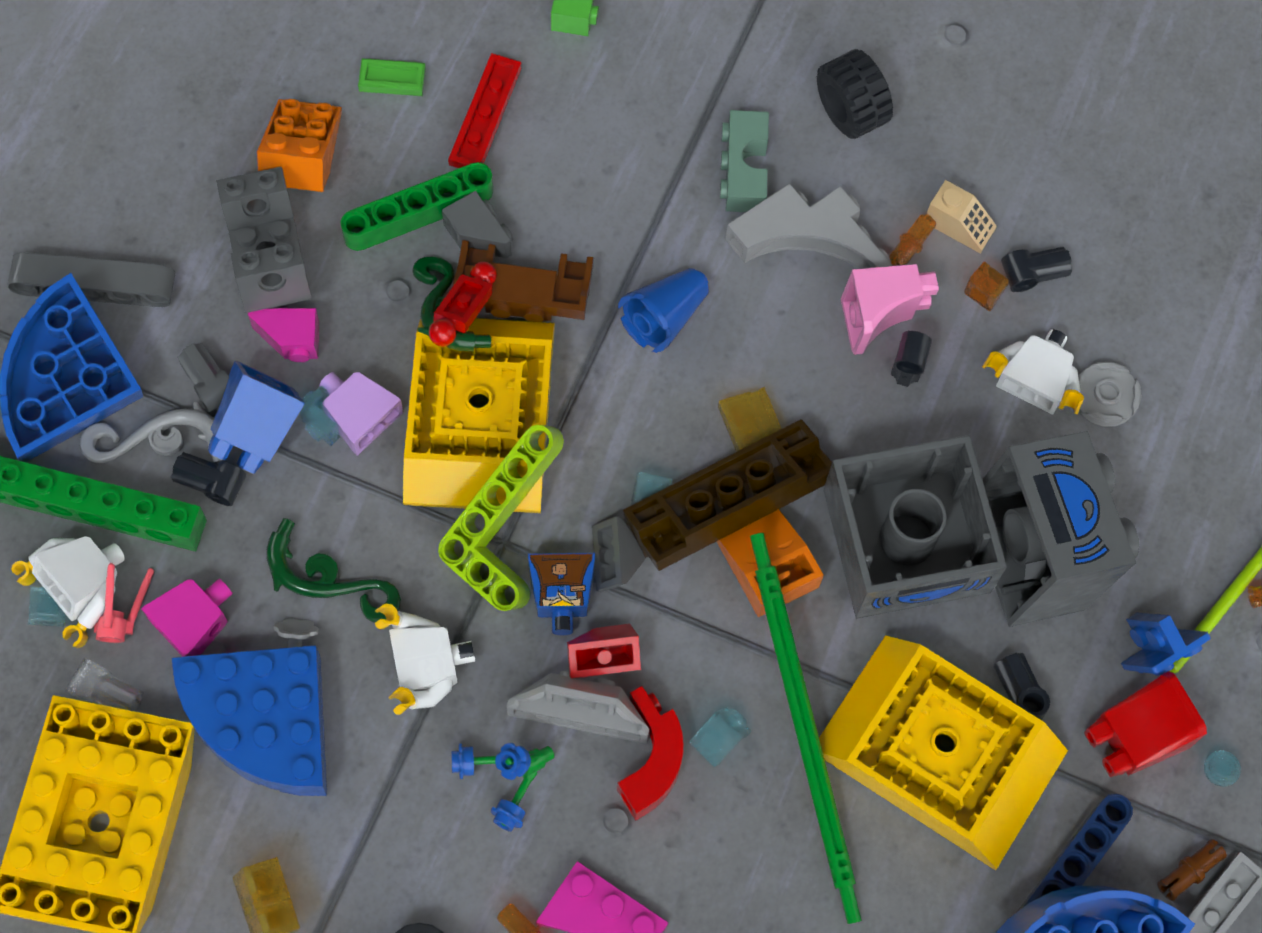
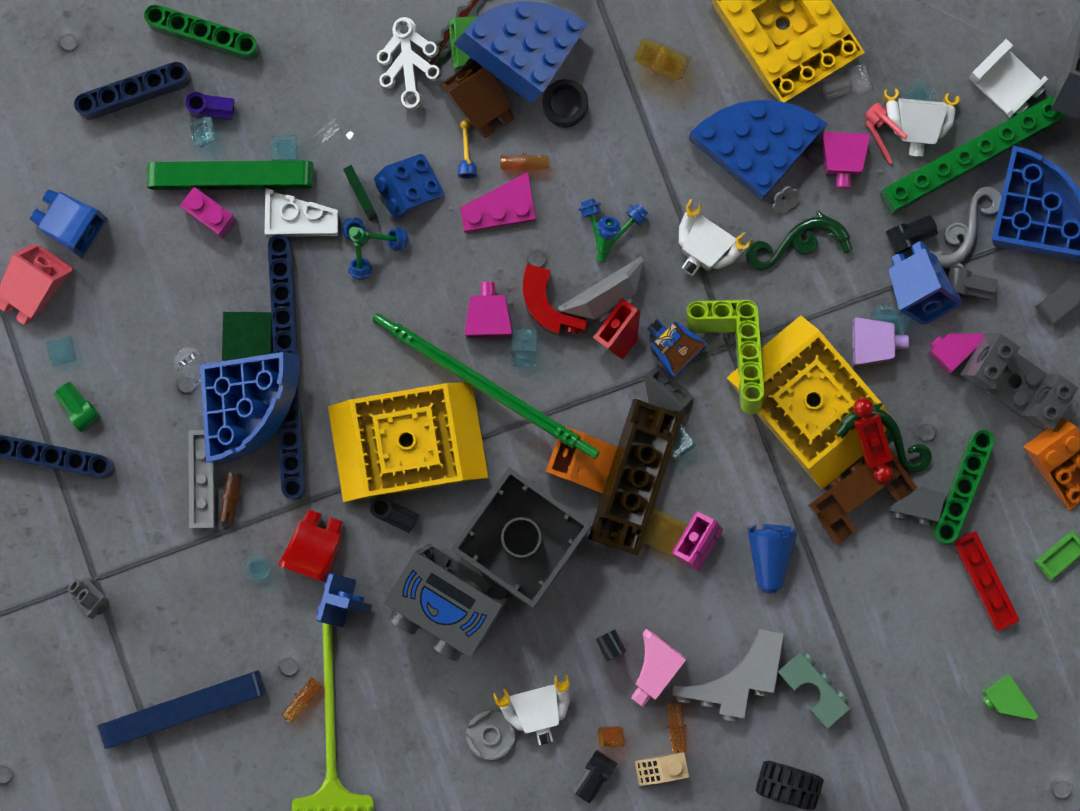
camera: 150 degrees right, 15 degrees up
(728, 379) = (697, 541): none -> dark pink brick
(728, 803) = (488, 314): none -> dark pink torso

